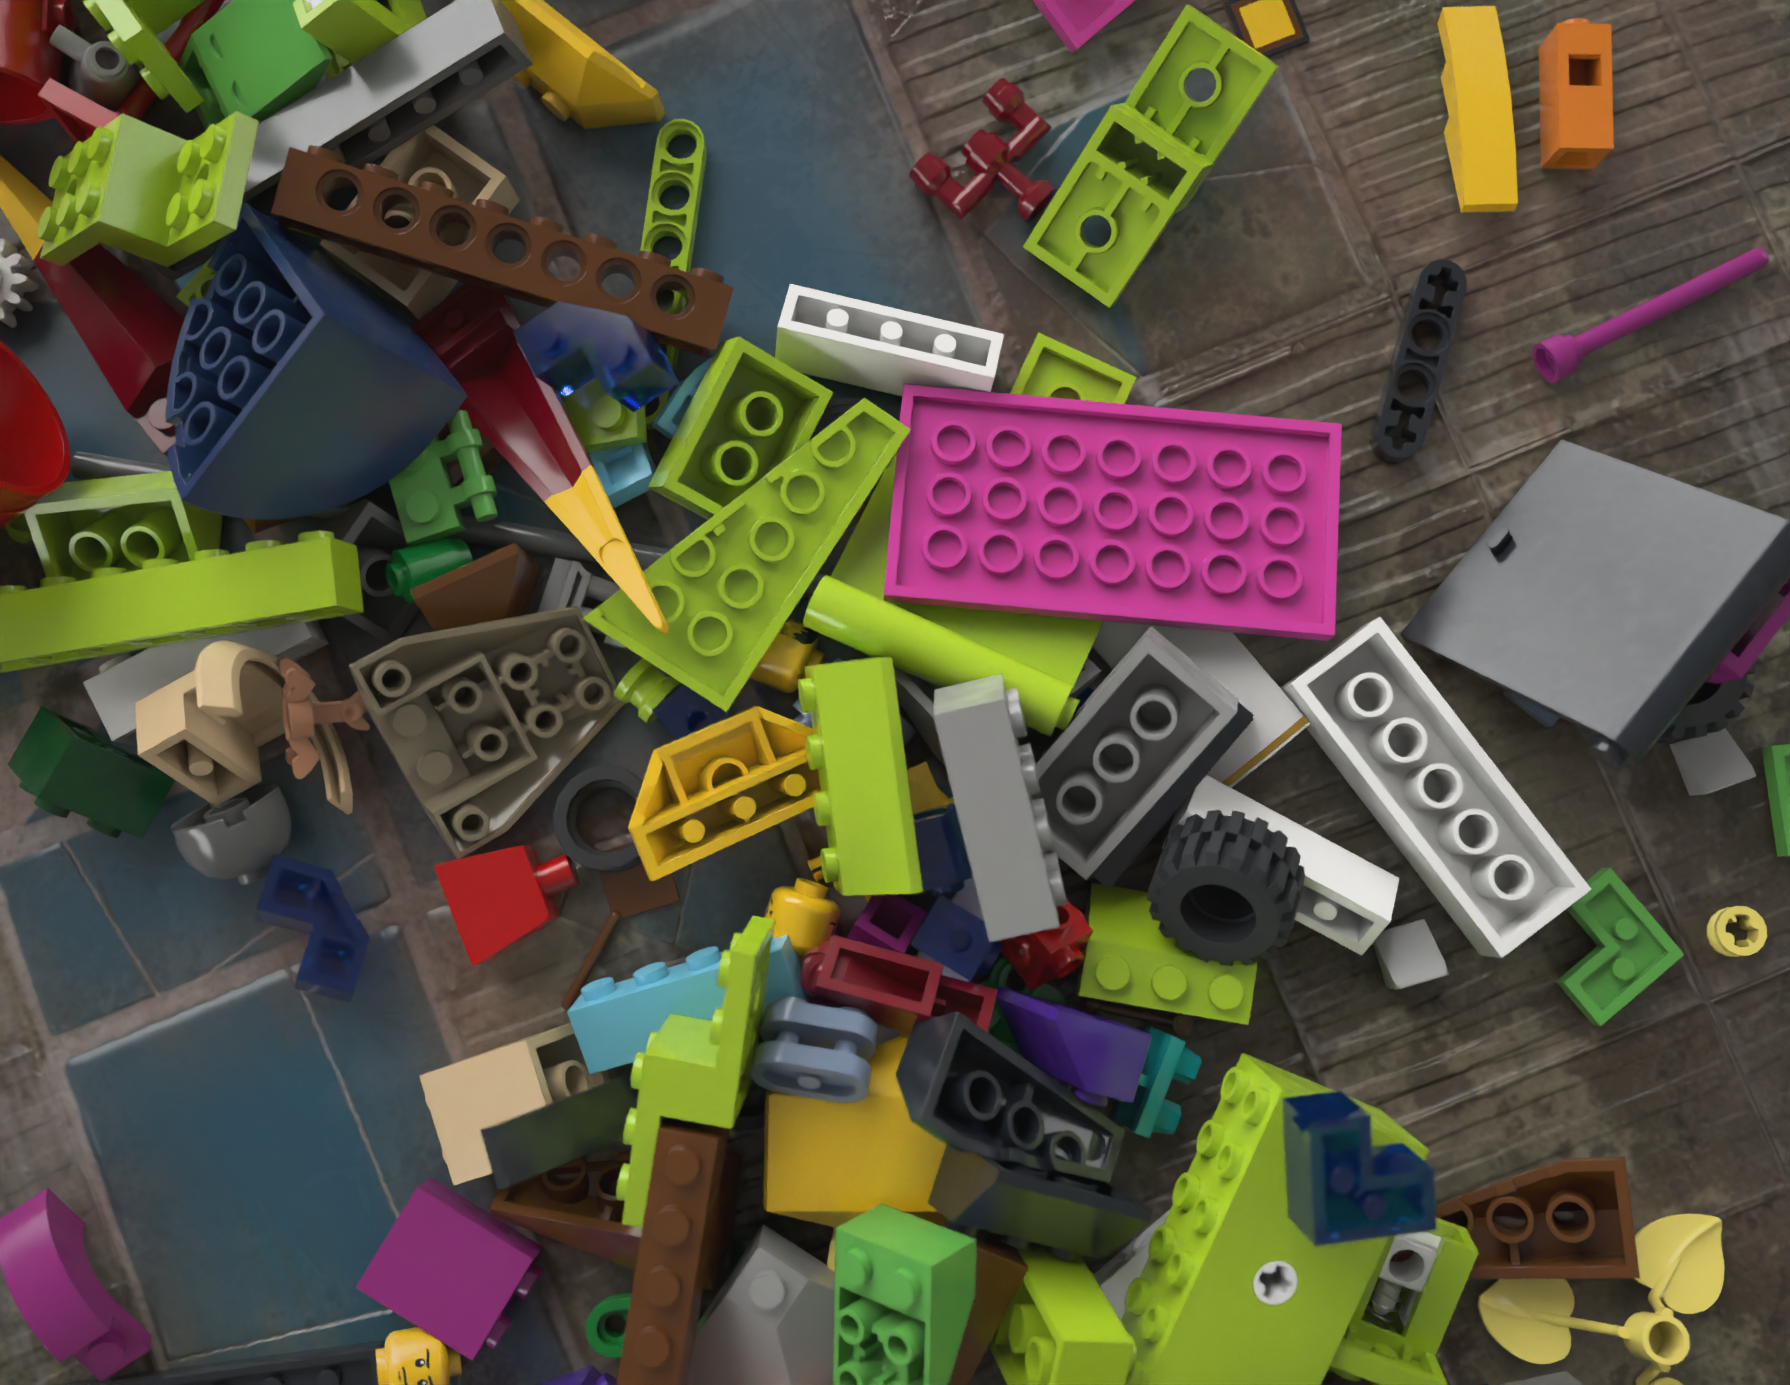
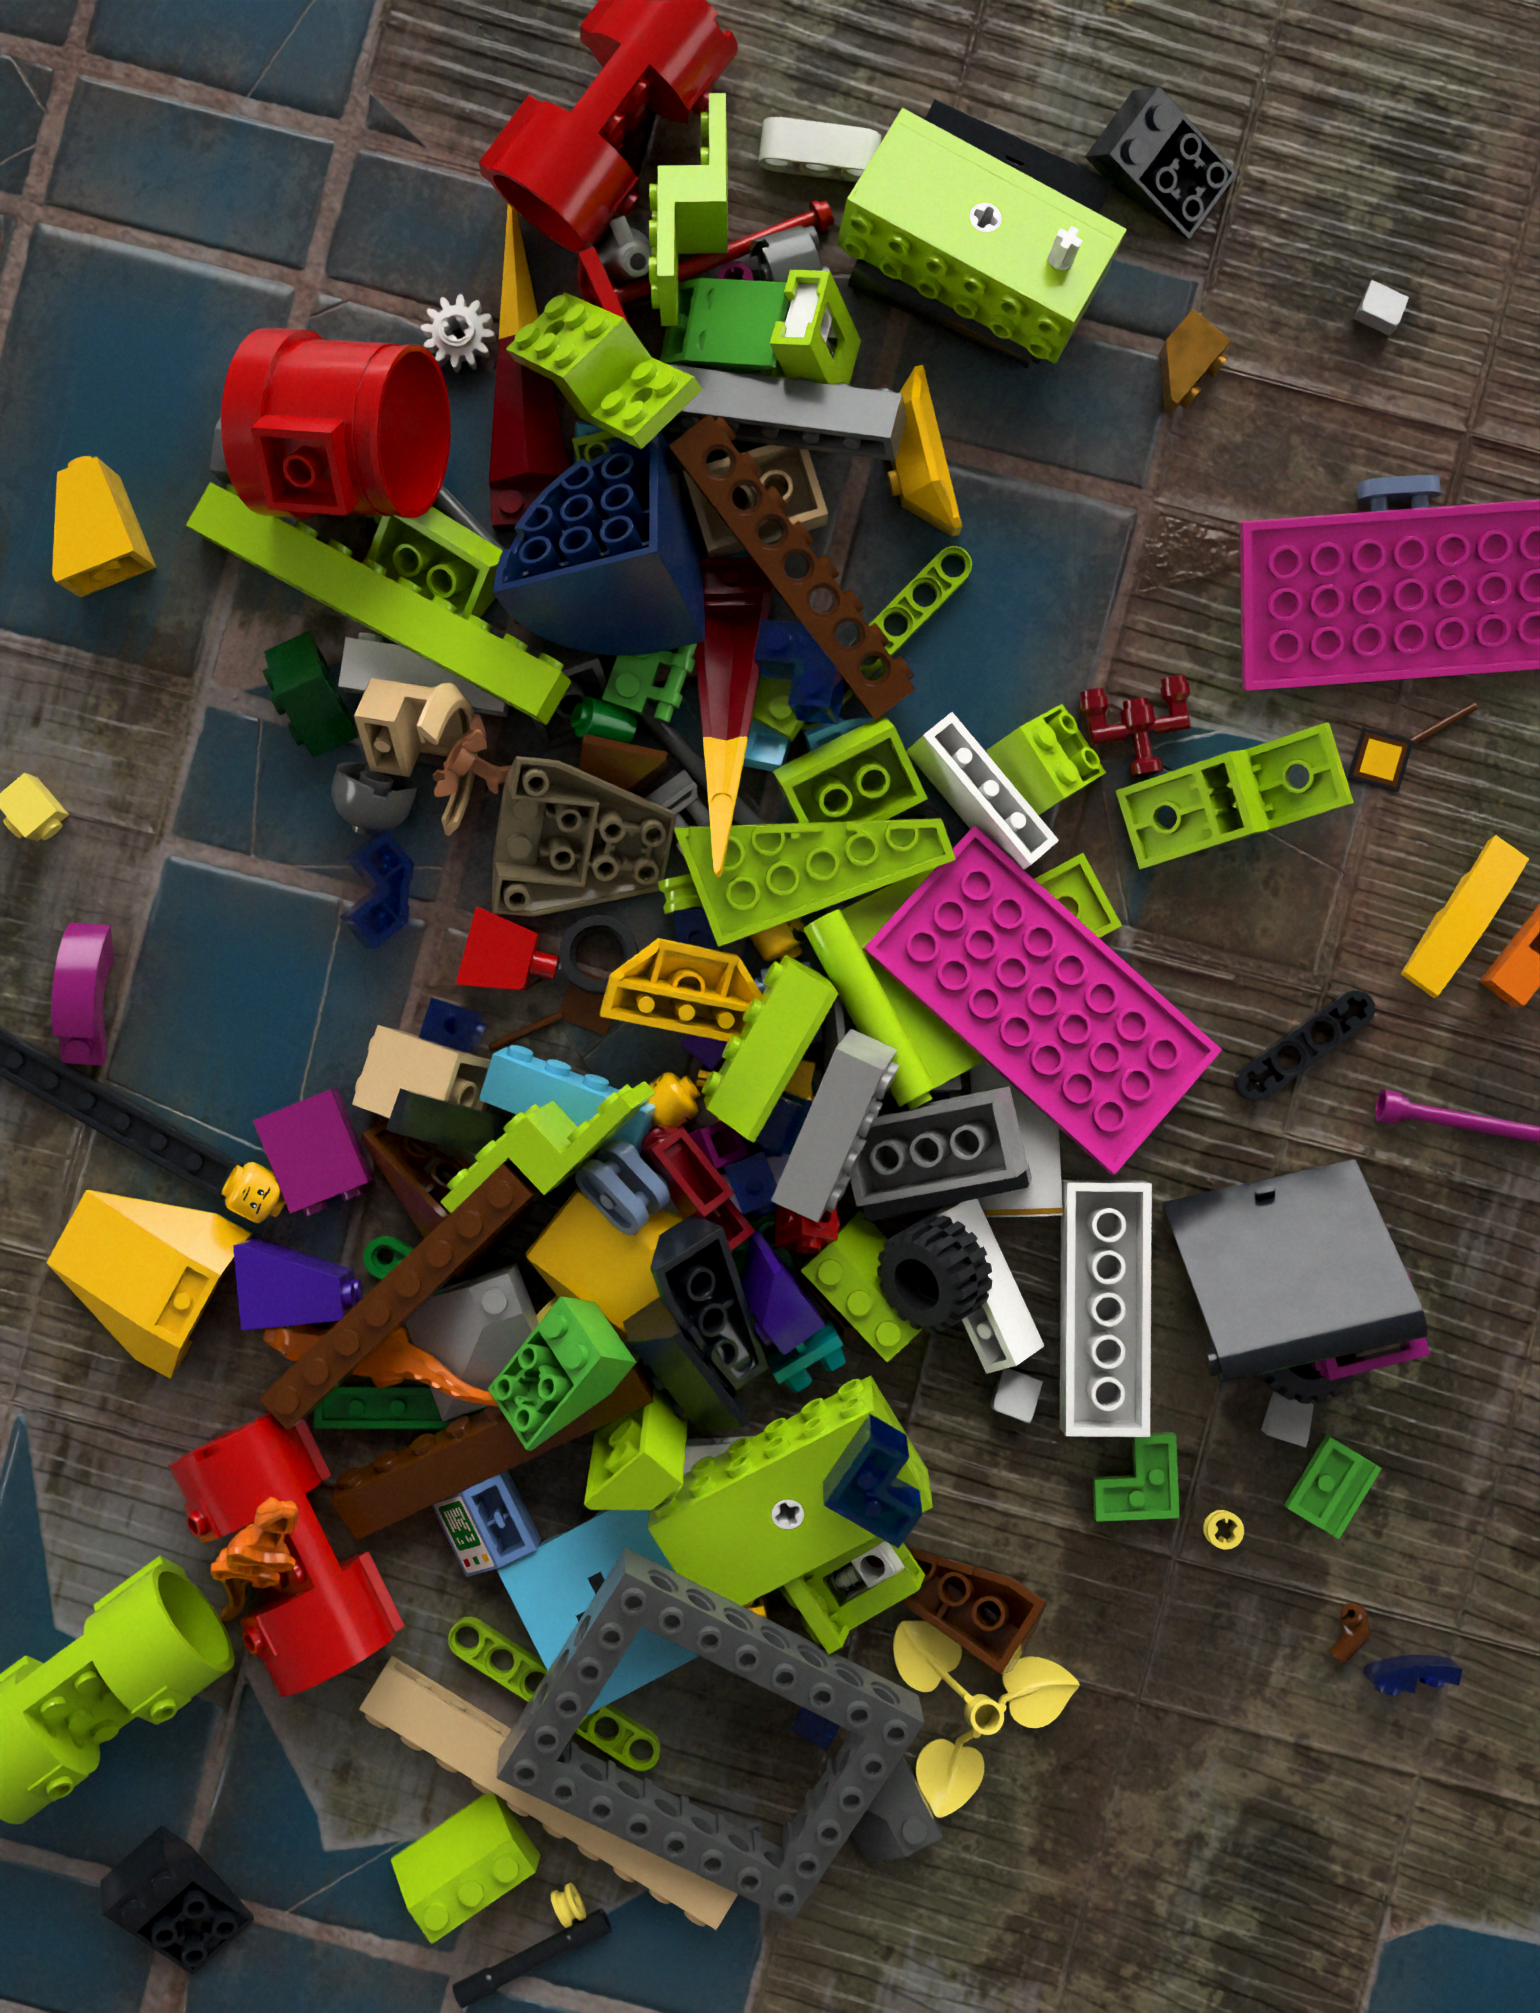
camera: 30 degrees right, 5 degrees up
(504, 1014) = (453, 1025): none -> clear blue brick
(796, 834) = (705, 1049): none -> dark purple tile
(928, 264) = (1047, 759): none -> lime slope

